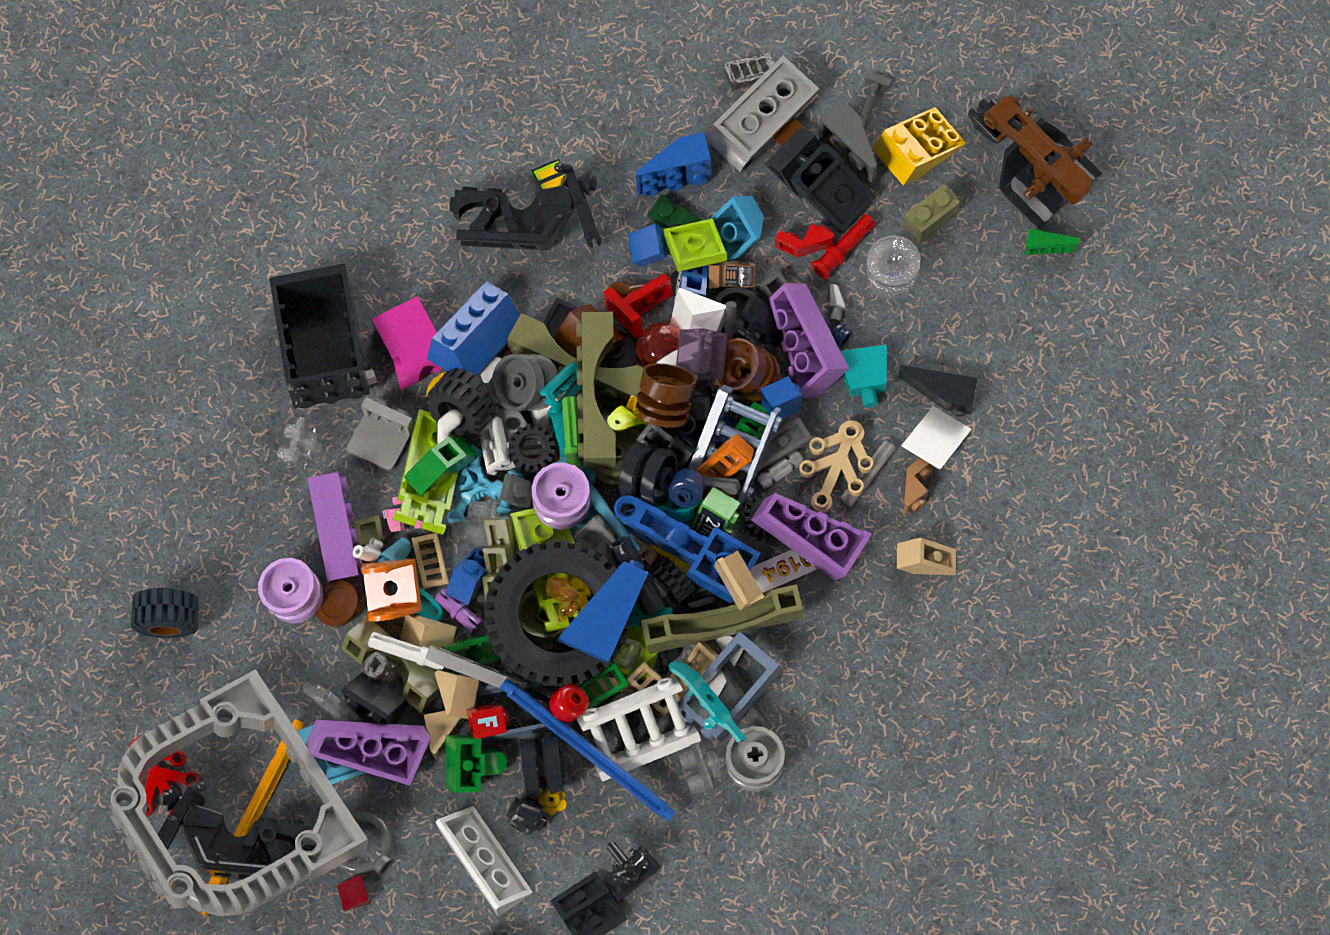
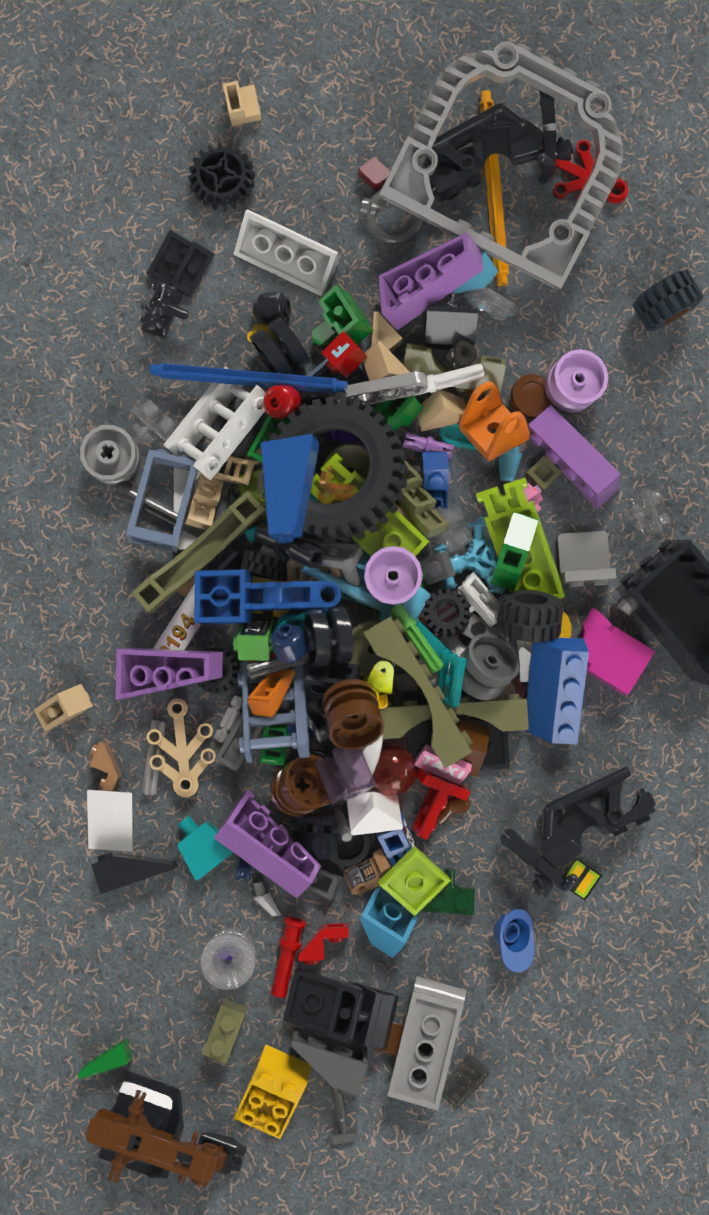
camera: 145 degrees right, 15 degrees up
(370, 552) = (529, 450): white arm -> none
(426, 539) = (463, 460): tan slope -> none
(448, 423) = (531, 591): white arm -> none
(621, 333) = (429, 761): none -> bright pink tile
(636, 152) = (516, 941): none -> blue piece
(647, 245) = (458, 859): blue piece -> none
(679, 164) = (470, 954): blue slope -> none
(719, 714) = (171, 473): teal piece -> none
(738, 580) = (197, 585): tan panel -> none
(782, 395) = (257, 778): blue brick -> none

